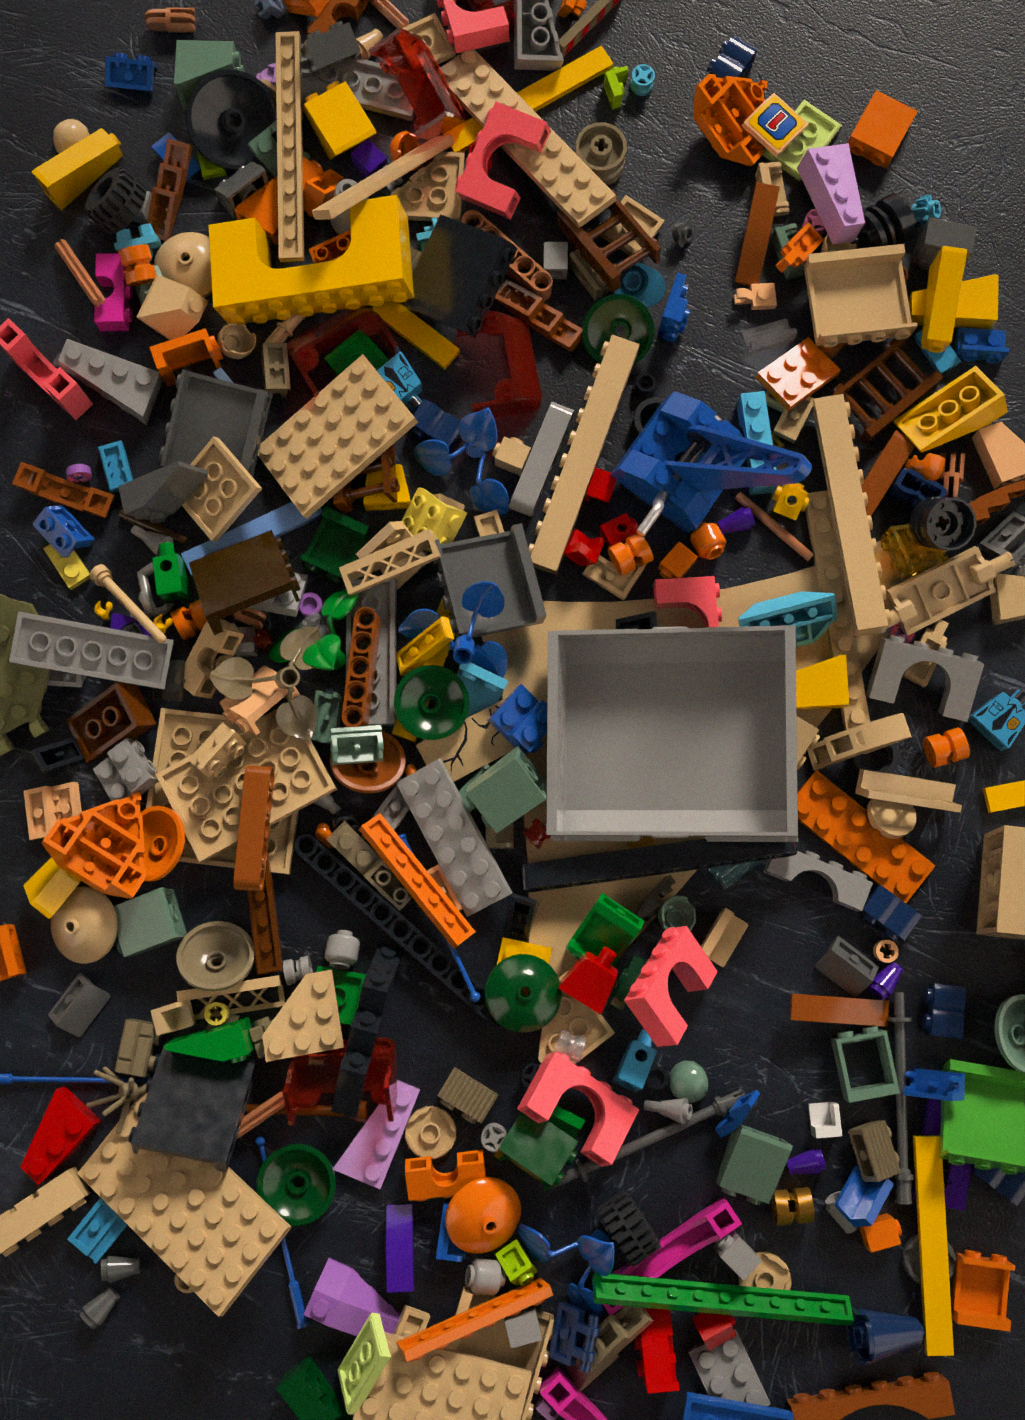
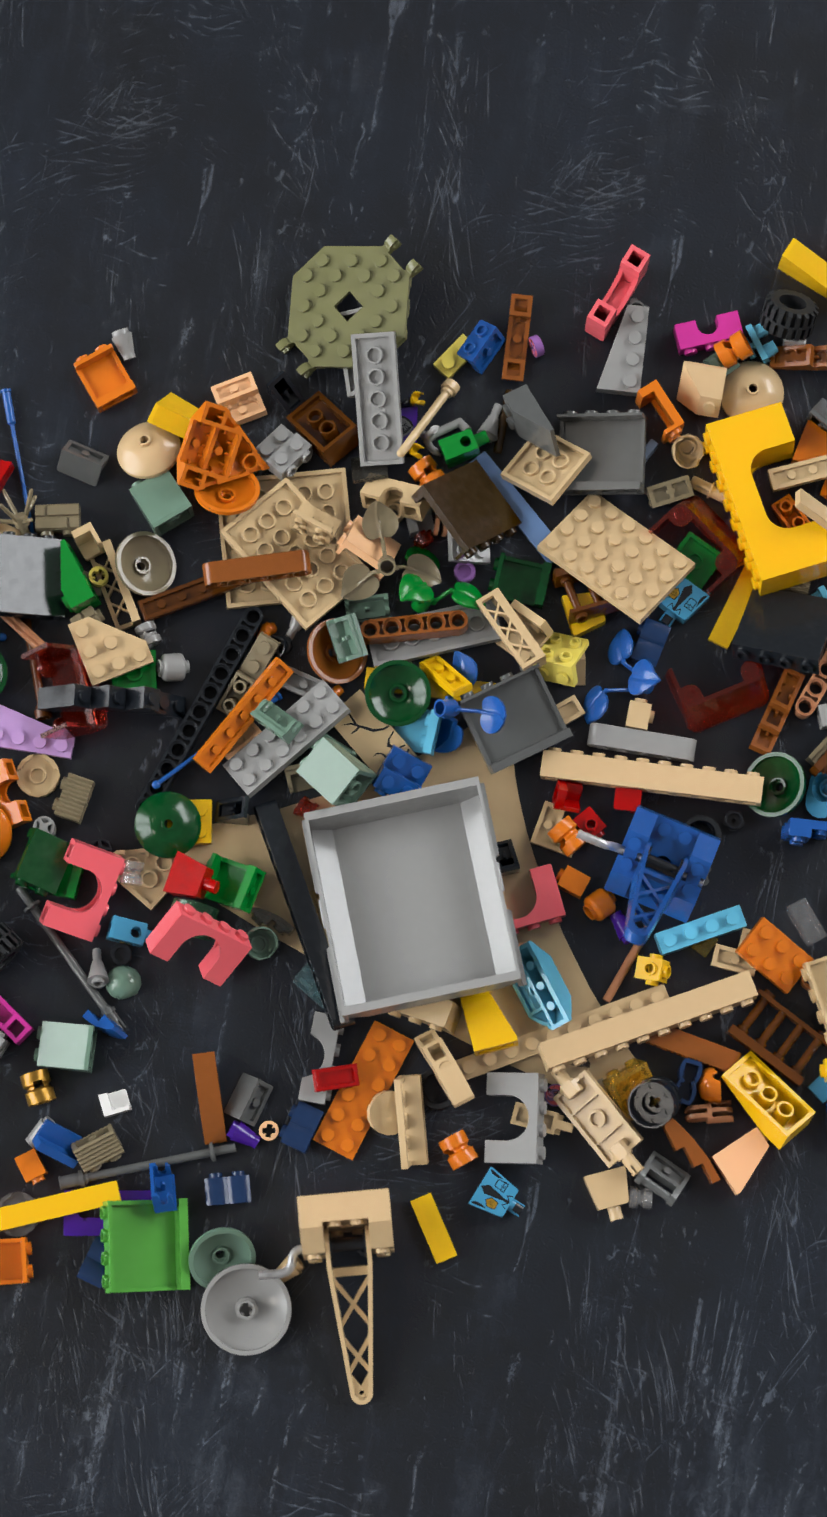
camera: 80 degrees right, 0 degrees up
(79, 273) = (717, 300): nougat axle -> none
(115, 465) = (549, 376): dark azure plate -> none
(315, 620) = (448, 579): clear wheel -> none
(433, 842) = (277, 720): none -> sand green hinge
(723, 937) = (251, 987): tan panel -> none
(807, 1162) = (77, 1096): dark purple cone -> none
(846, 863) = (335, 1077): none -> red tile
(870, 1091) = (146, 1135): sand green window -> none

